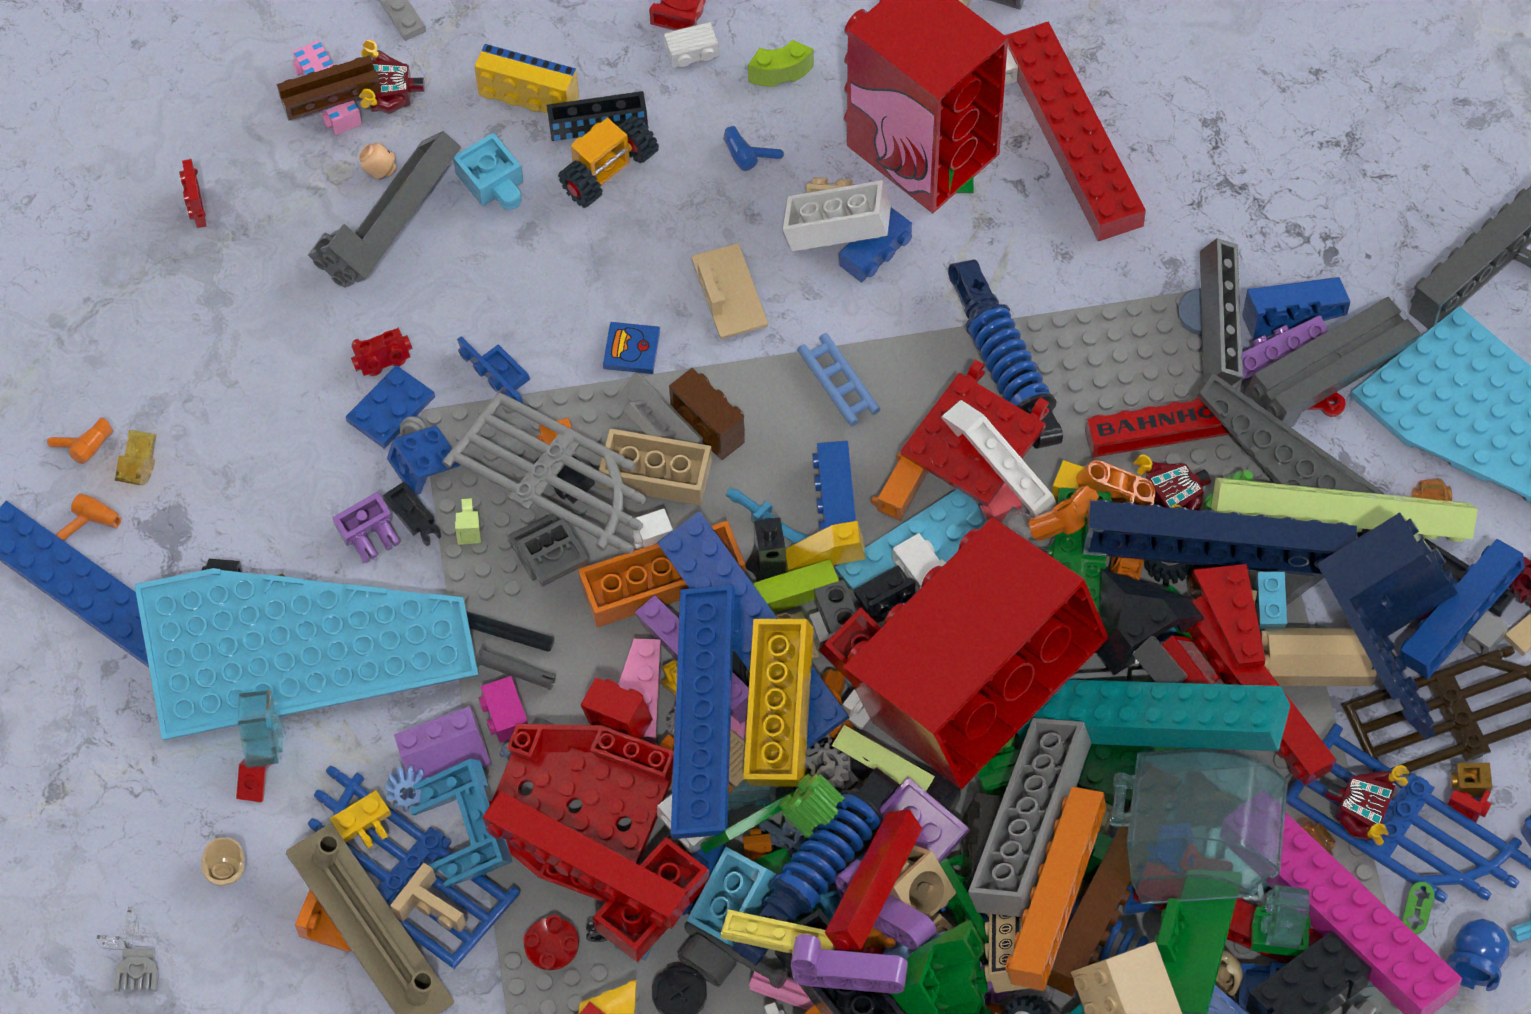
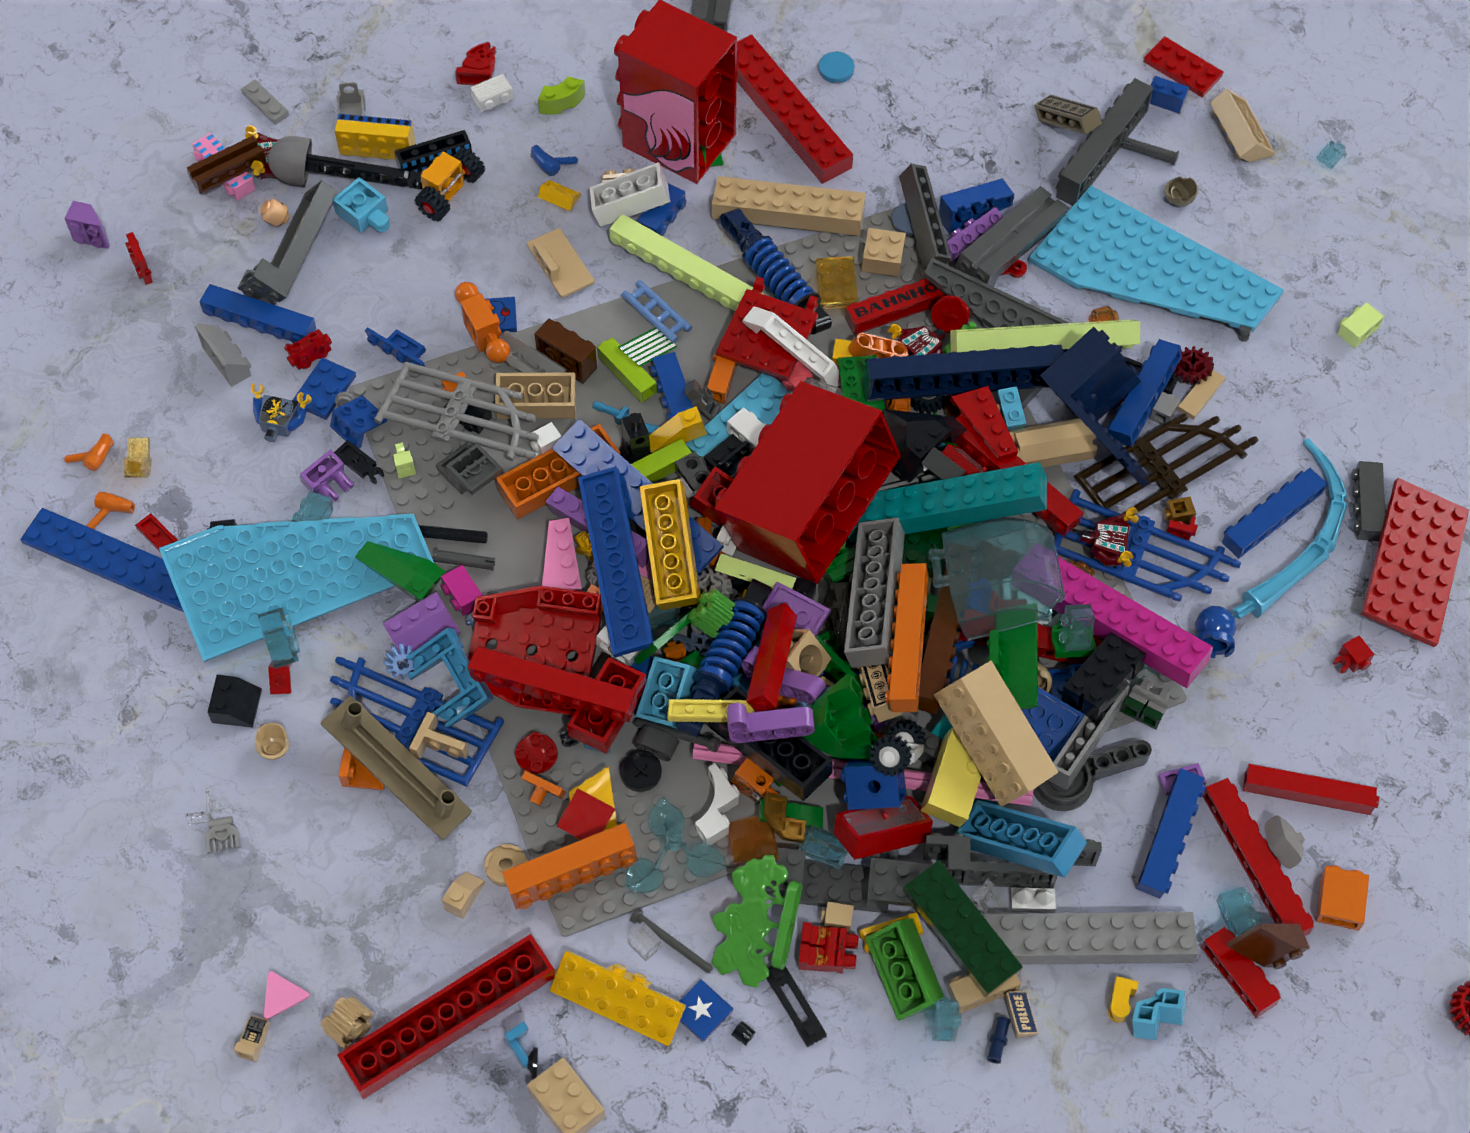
camera: 15 degrees left, 0 degrees up
(135, 138) = (85, 225): none -> medium lavender slope
(139, 559) = (155, 532): none -> red tile
(188, 800) = (234, 701): none -> black slope
(273, 338) = (223, 353): none -> light grey slope
(324, 432) = (277, 414): none -> torso
(325, 293) = (256, 314): none -> blue brick
(341, 566) = (314, 508): none -> clear light blue brick
(360, 817) = (371, 687): yellow hinge -> none
(415, 95) = (293, 160): none -> piece
(438, 671) = (406, 571): none -> green wedge
(507, 28) = (351, 101): none -> light grey piece
(547, 991) = (542, 787): none -> orange tile
(607, 356) = (481, 322): none -> orange brick
(616, 708) = (549, 570): red brick -> none
(748, 197) = (558, 195): none -> yellow slope
(781, 452) = (626, 370): none -> lime brick
(815, 426) = (647, 346): none -> sticker
(869, 511) = (702, 399): none -> dark grey piece
(881, 318) = (678, 262): none -> yellowish green brick
(1047, 266) = (791, 205): none -> tan brick
(1065, 516) = (849, 375): orange piece -> none
(1084, 381) = (836, 282): none -> clear yellow plate
(1154, 83) = (836, 67): none -> dark azure tile
(1155, 351) = (883, 252): none -> tan brick
(1223, 453) = (950, 313): none -> red tile
(1425, 909) = (1169, 604): bright green beam -> none
(1448, 203) = (1068, 114): none -> dark tan brick

